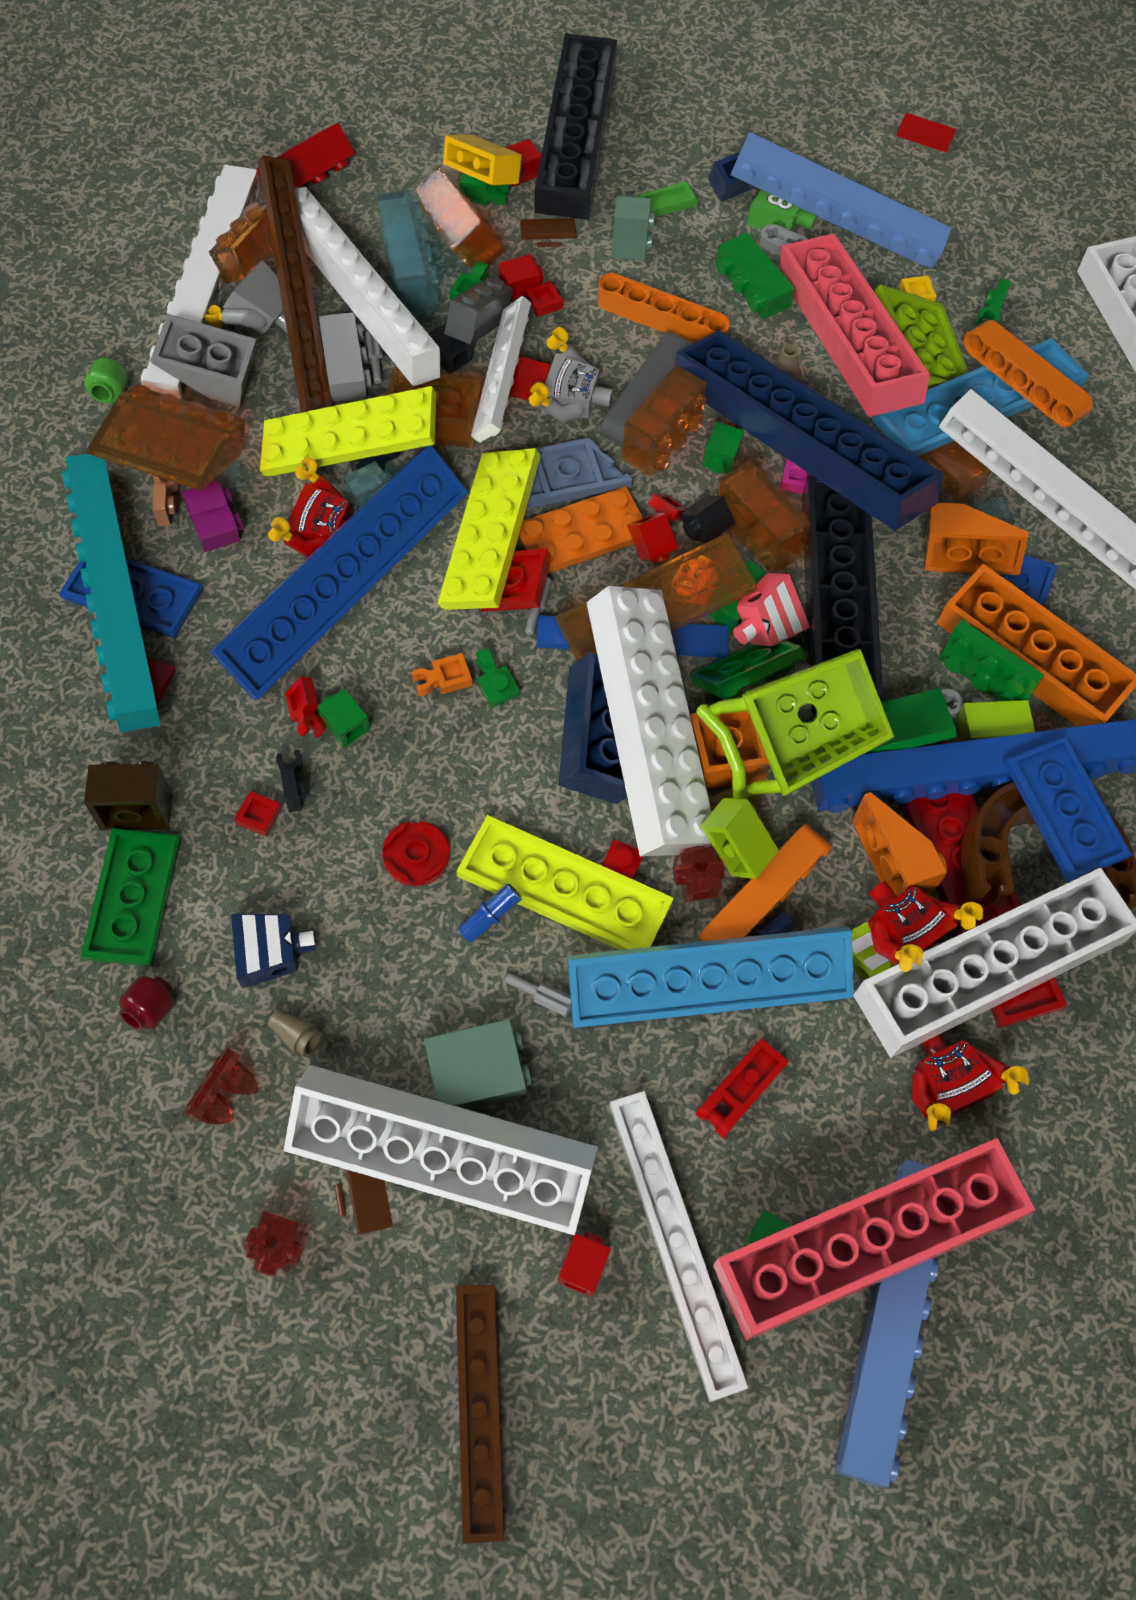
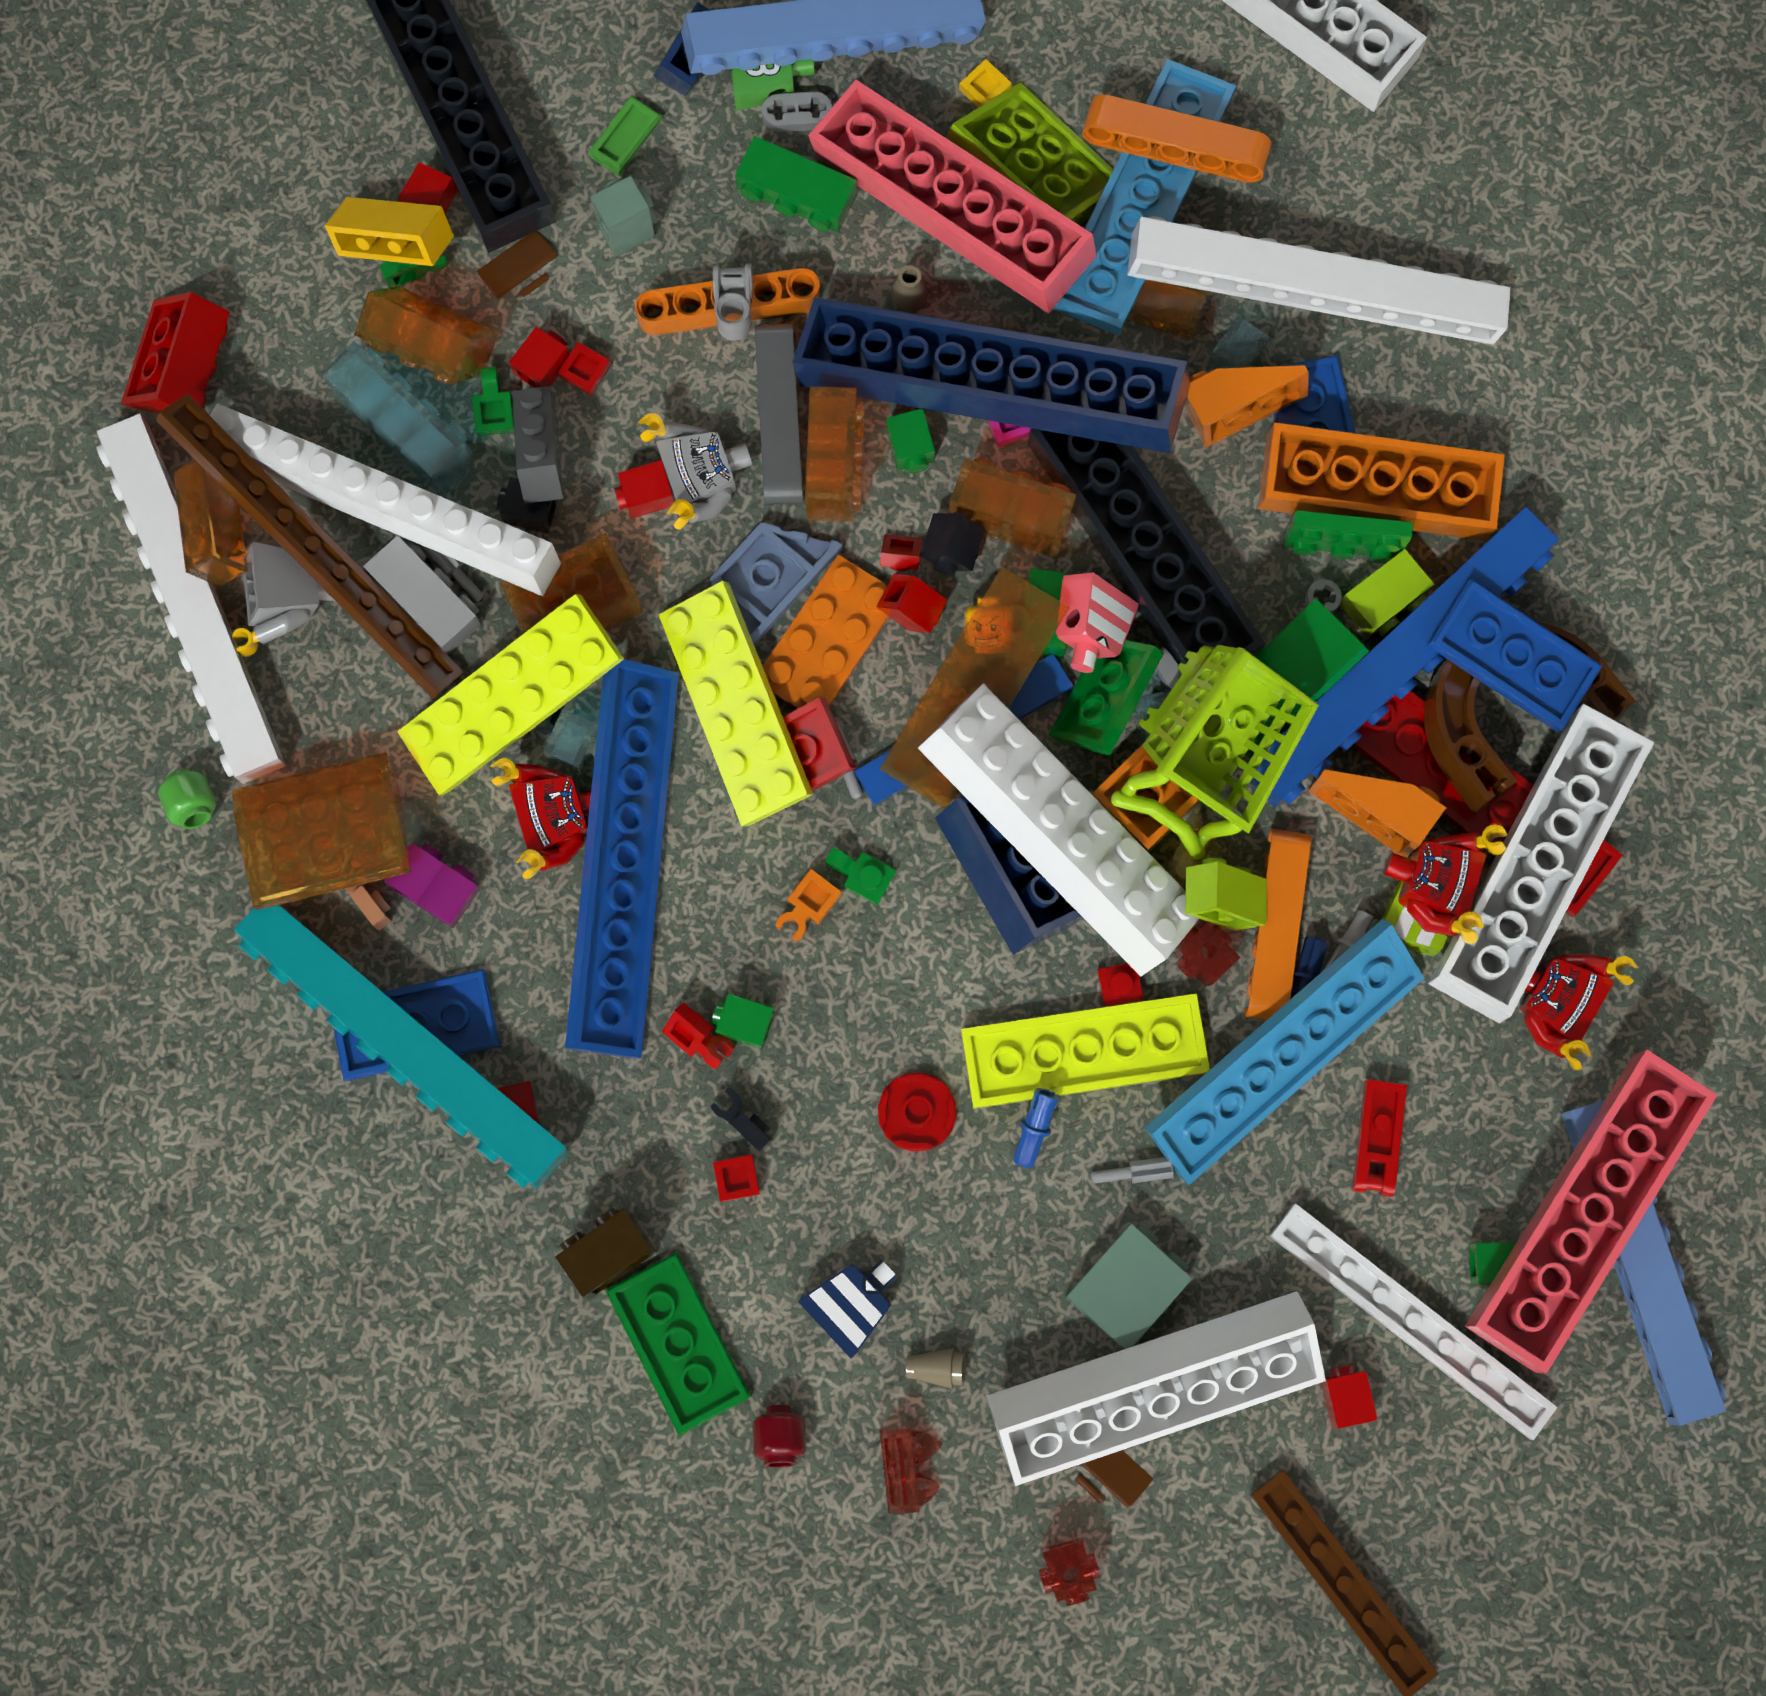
camera: 30 degrees left, 15 degrees up
(205, 358) = (283, 705): light grey slope -> none
(501, 370) = (616, 505): white plate -> none
(664, 301) = (733, 295): none -> light grey piece
(994, 302) = (1078, 44): green plate -> none

